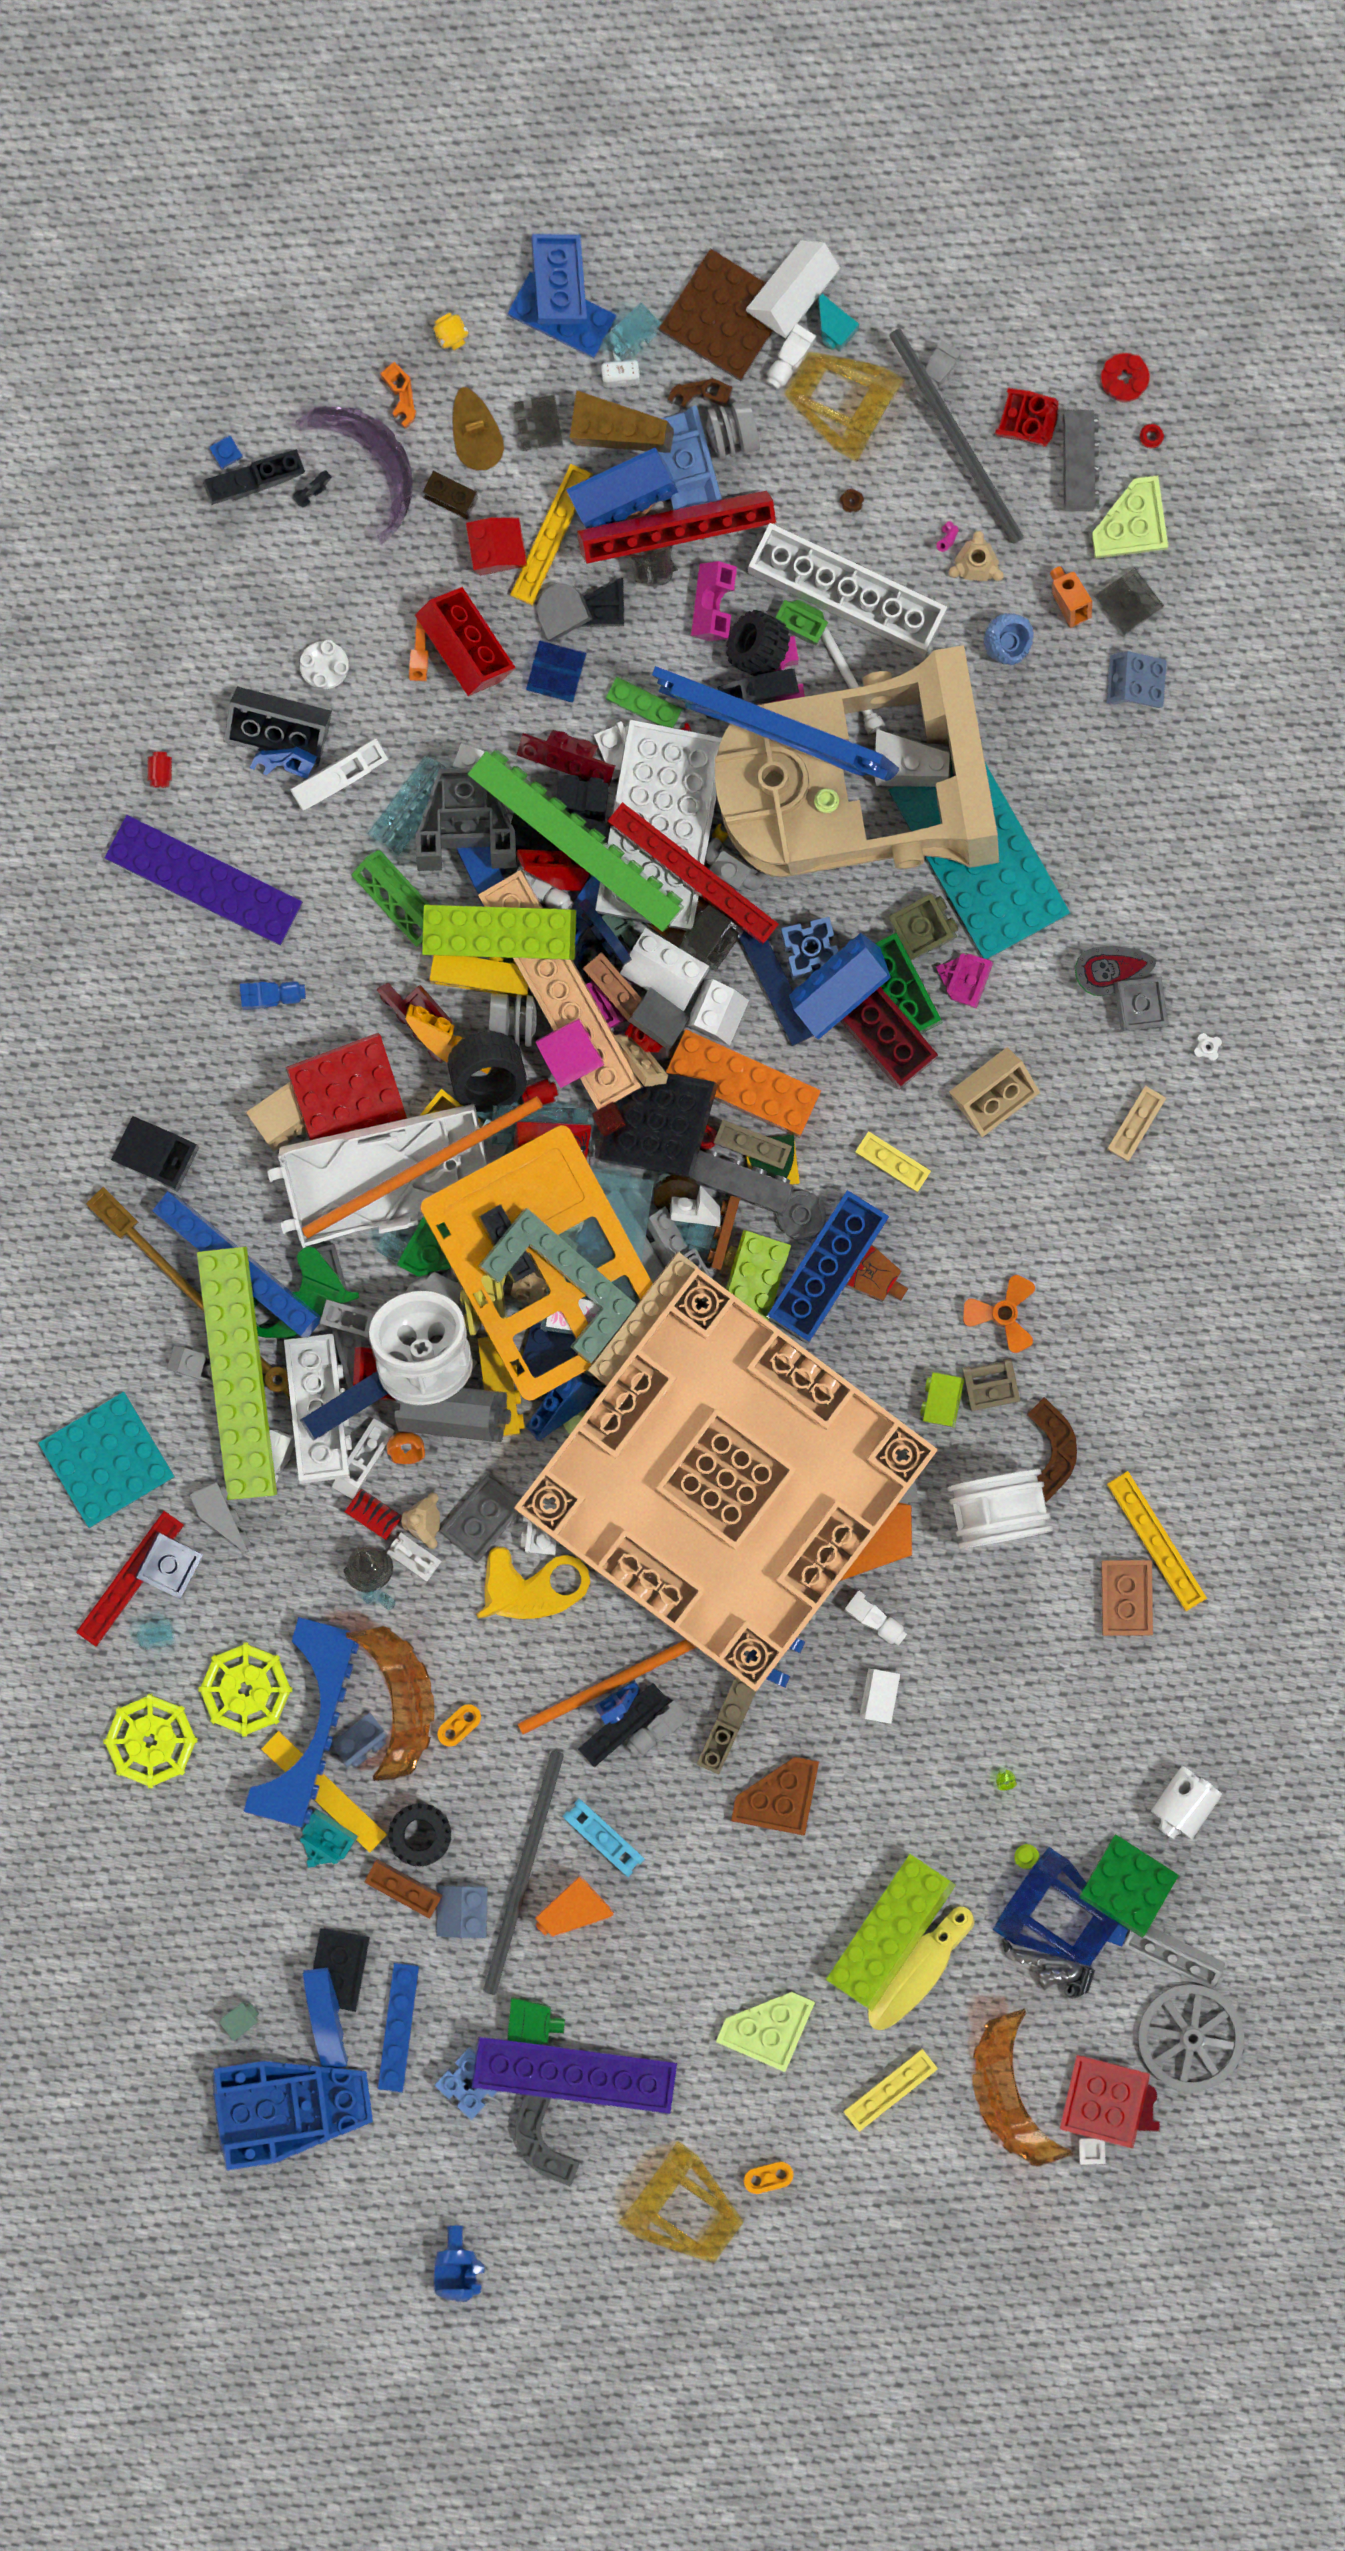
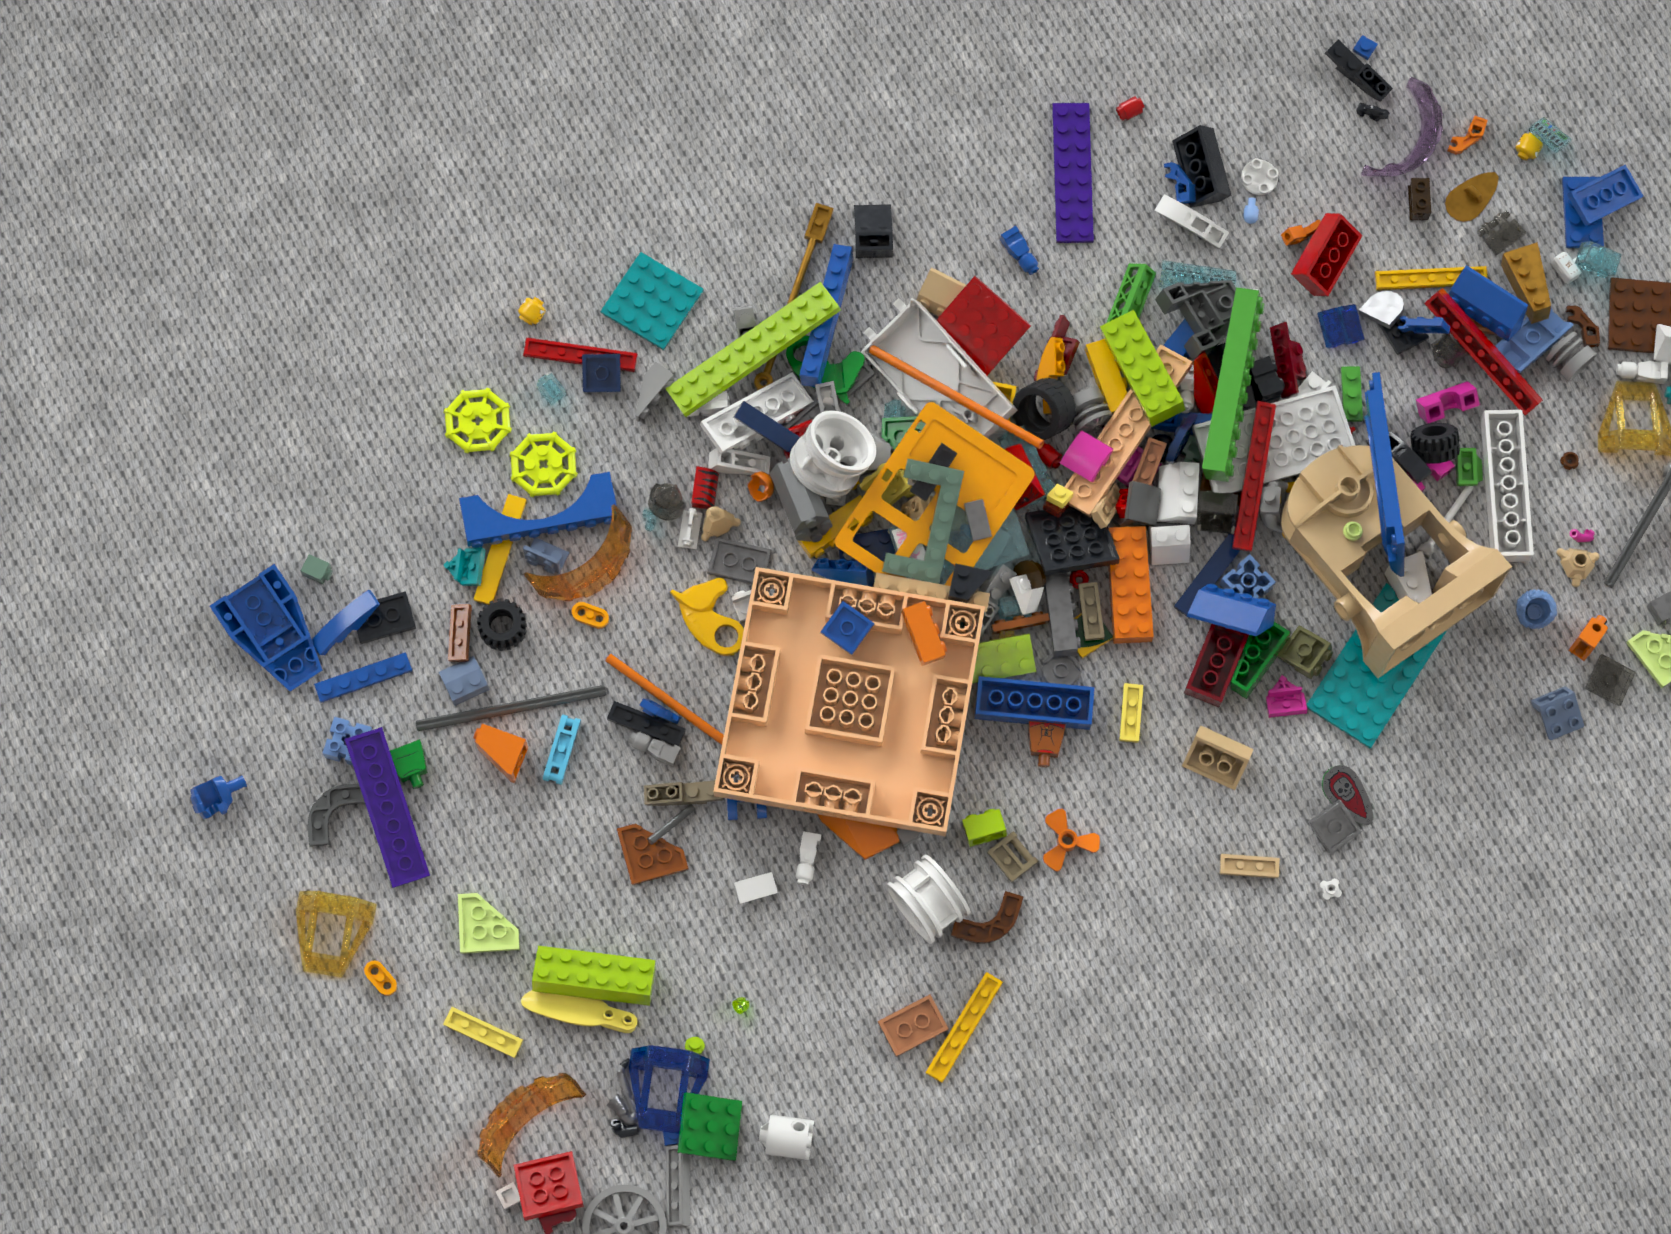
camera: 65 degrees right, 10 degrees down
(46, 1609) = (531, 310): none -> yellow head
(362, 698) = (1251, 211): none -> light blue cylinder
(451, 299) = (1550, 134): none -> clear light blue tile
(496, 545) = (1403, 244): red slope -> none
(587, 1221) = (977, 520): none -> flat silver tile
(601, 1109) = (1059, 496): none -> light yellow plate
(610, 579) = (1424, 325): none -> blue plate
(642, 1439) = (847, 628): none -> blue tile
(653, 1272) = (966, 582): none -> black wing
(695, 1354) = (924, 633): none -> orange brick
(757, 1755) = (671, 824): none -> dark grey bar

